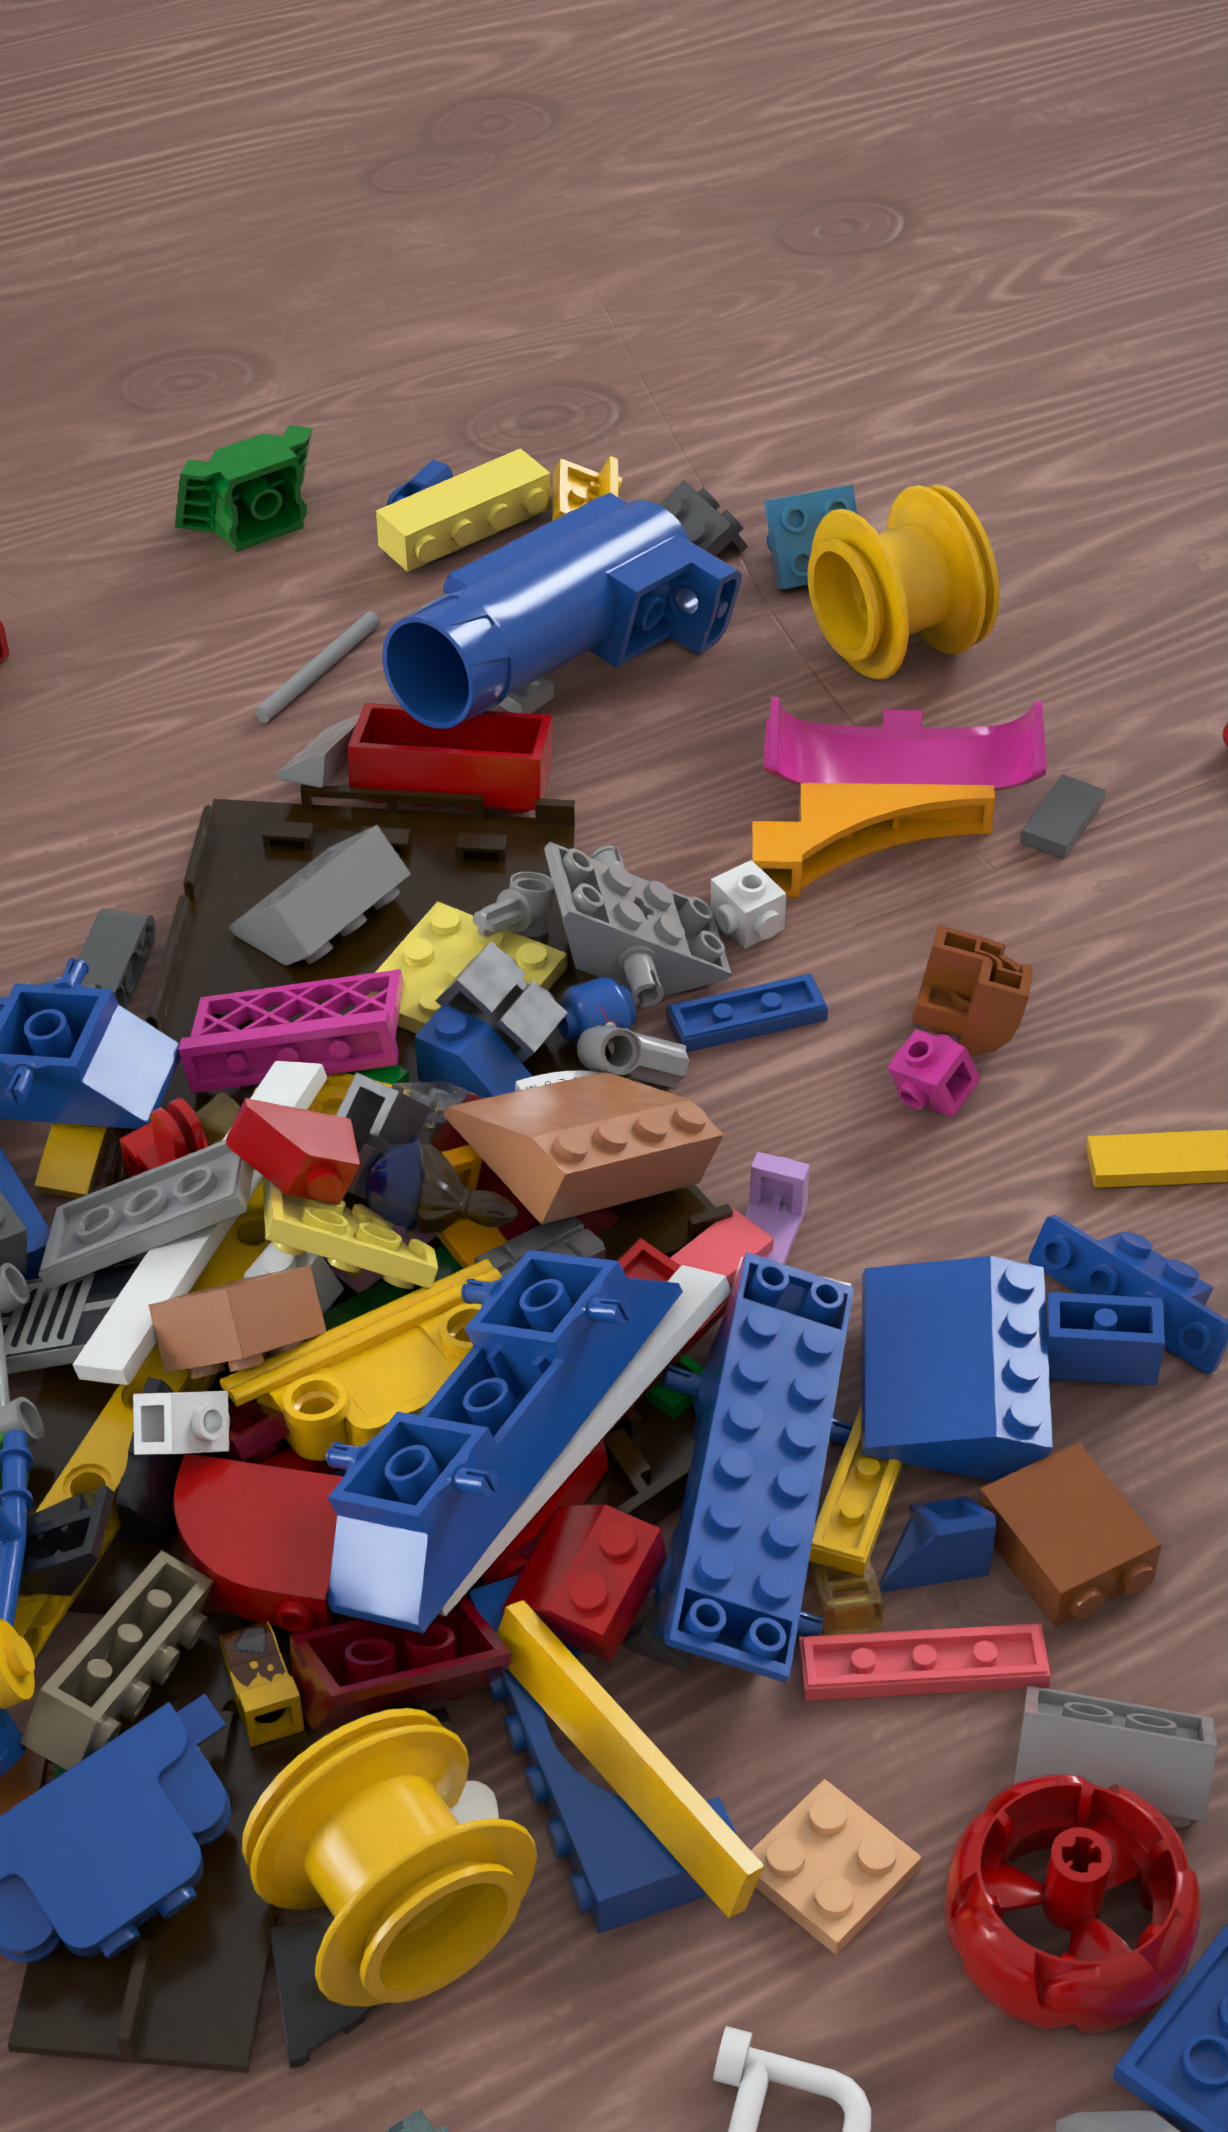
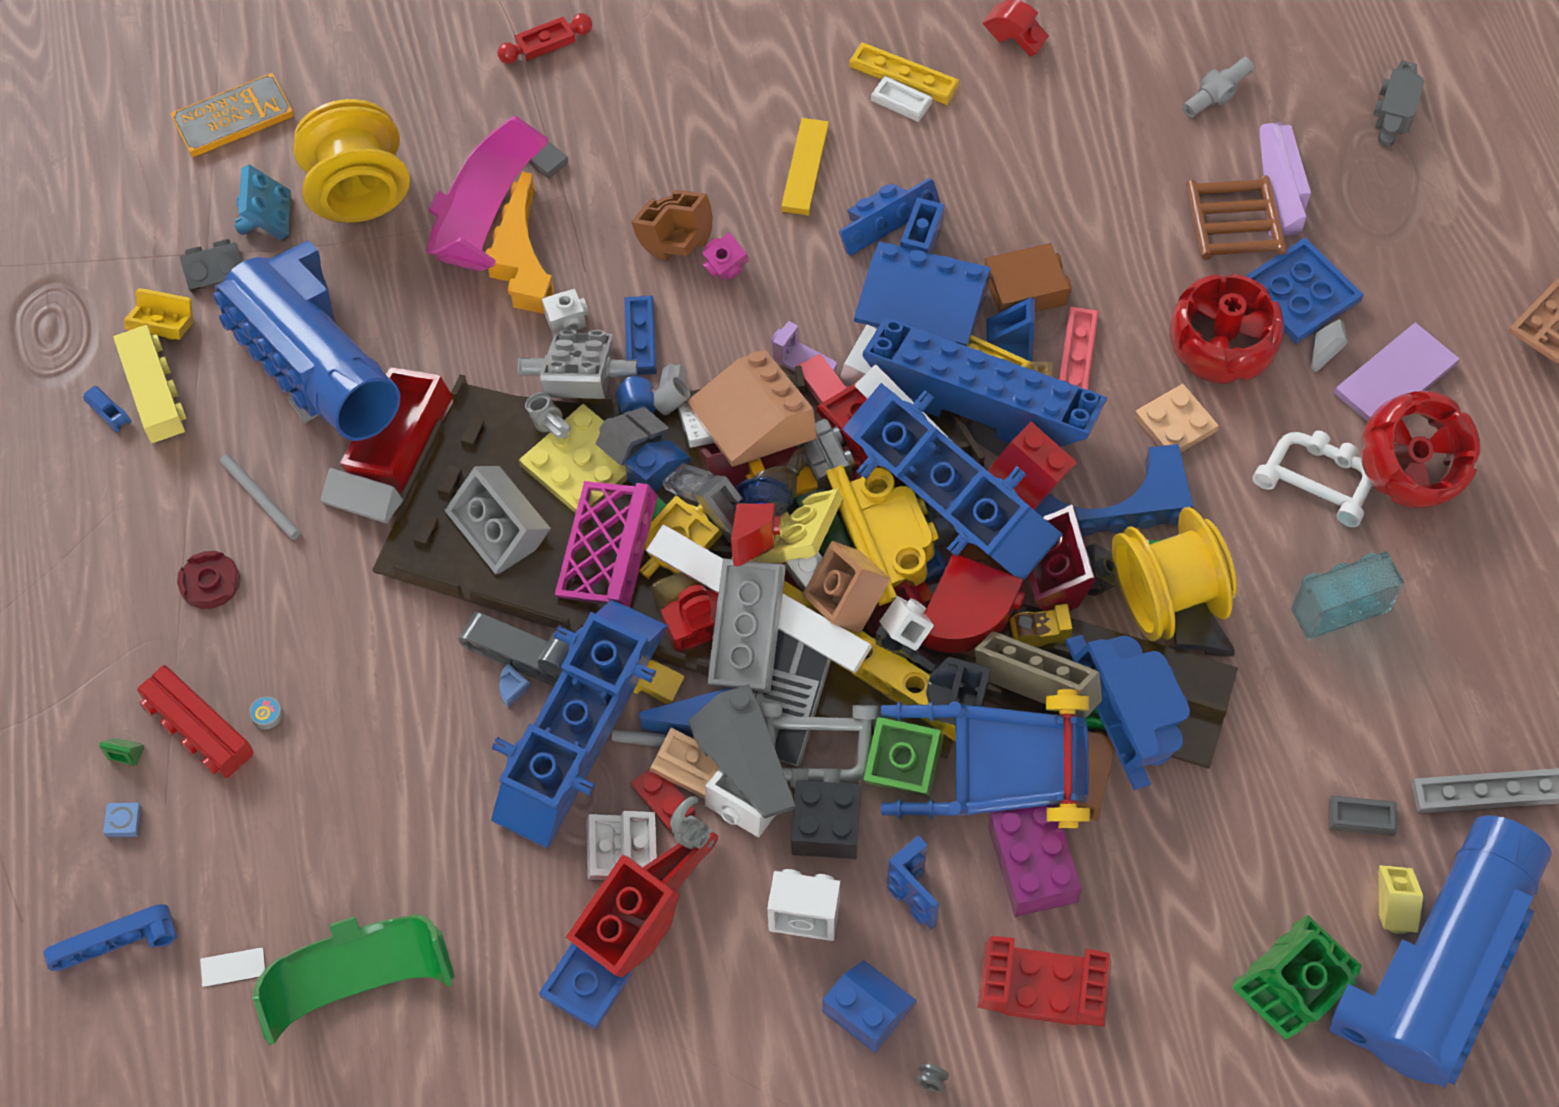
camera: 75 degrees left, 15 degrees up
(168, 651) = (208, 580): none -> dark red tile
(247, 489) = (77, 500): green slope -> none
(630, 1761) = (1132, 473): yellow tile -> none
(1001, 496) = (232, 115): none -> tile
(1110, 1742) = (1146, 295): light grey slope -> none

